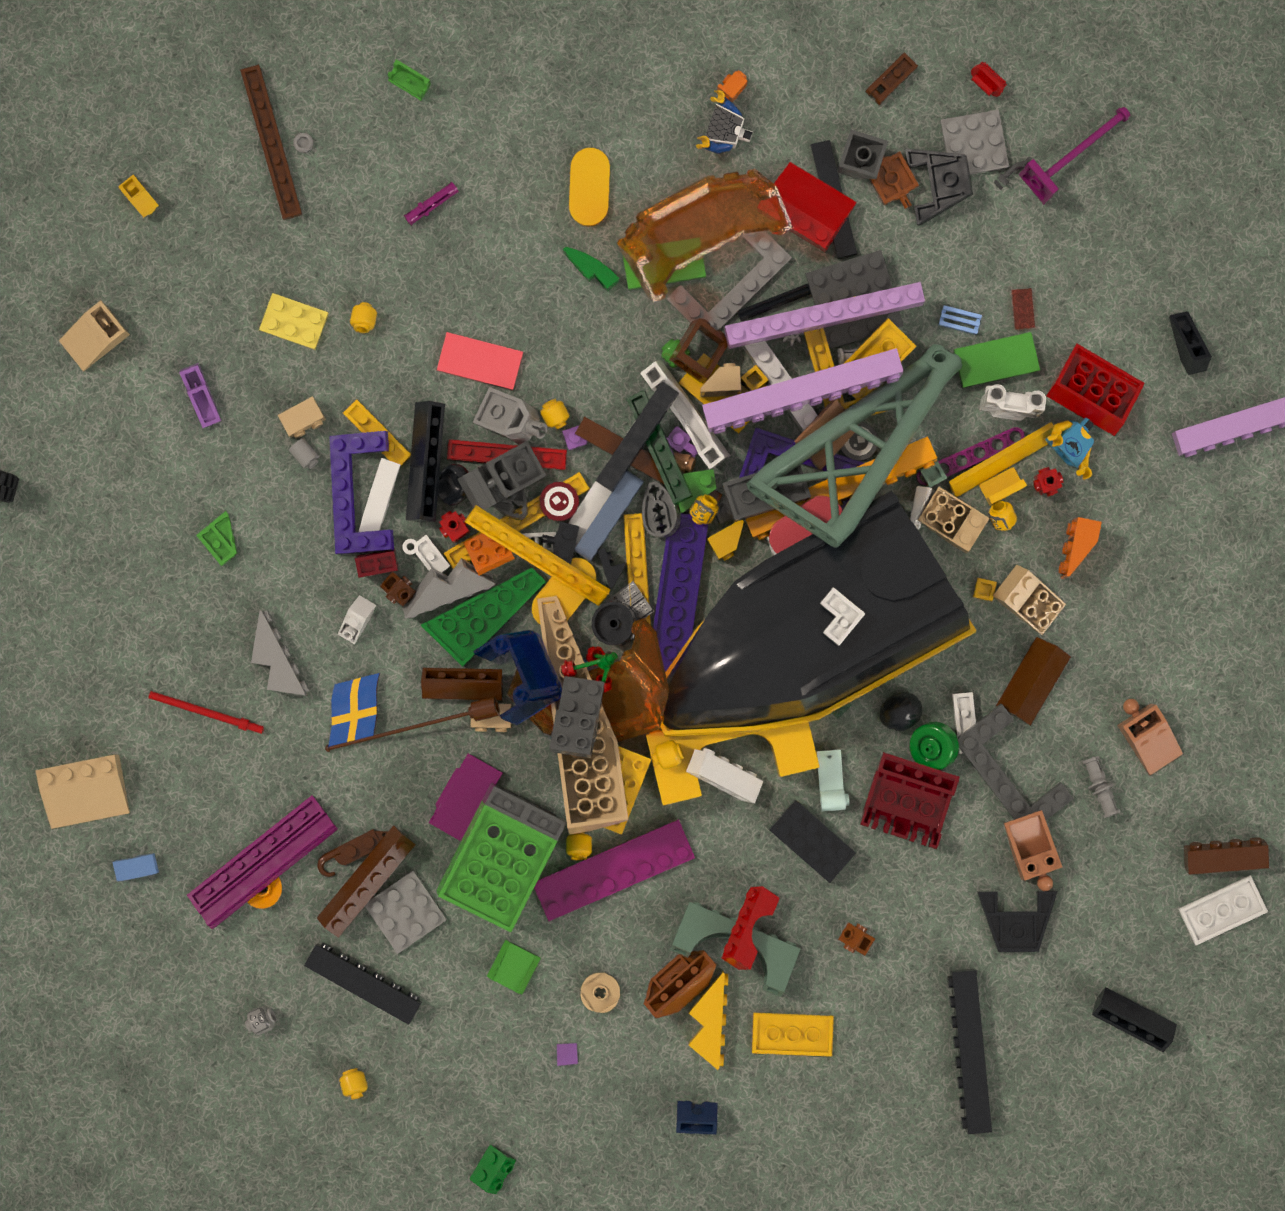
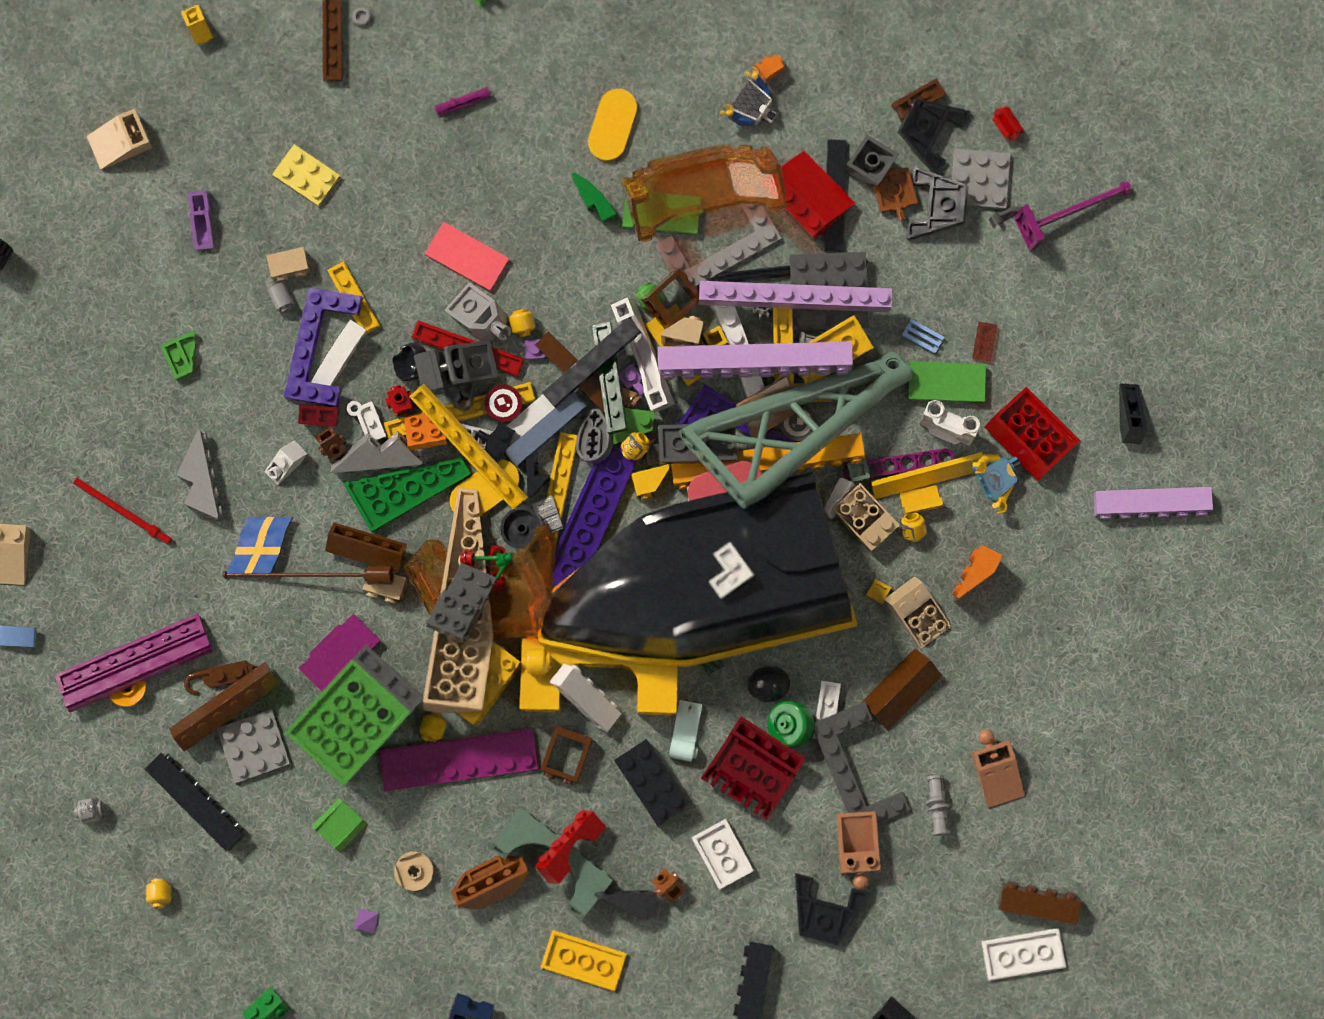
camera: 15 degrees right, 5 degrees down
(363, 317) = (370, 188): yellow head -> none
(425, 461) = (390, 334): black brick -> none
(535, 668) = (436, 548): clear blue windscreen -> none
(709, 1013) = (510, 919): yellow slope -> none
(725, 816) = (566, 778): none -> reddish brown window
(829, 964) = (637, 902): none -> black slope
(900, 892) = (722, 854): none -> white plate
(904, 107) = (923, 127): none -> black wing
(1041, 485) = (959, 511): red brick -> none

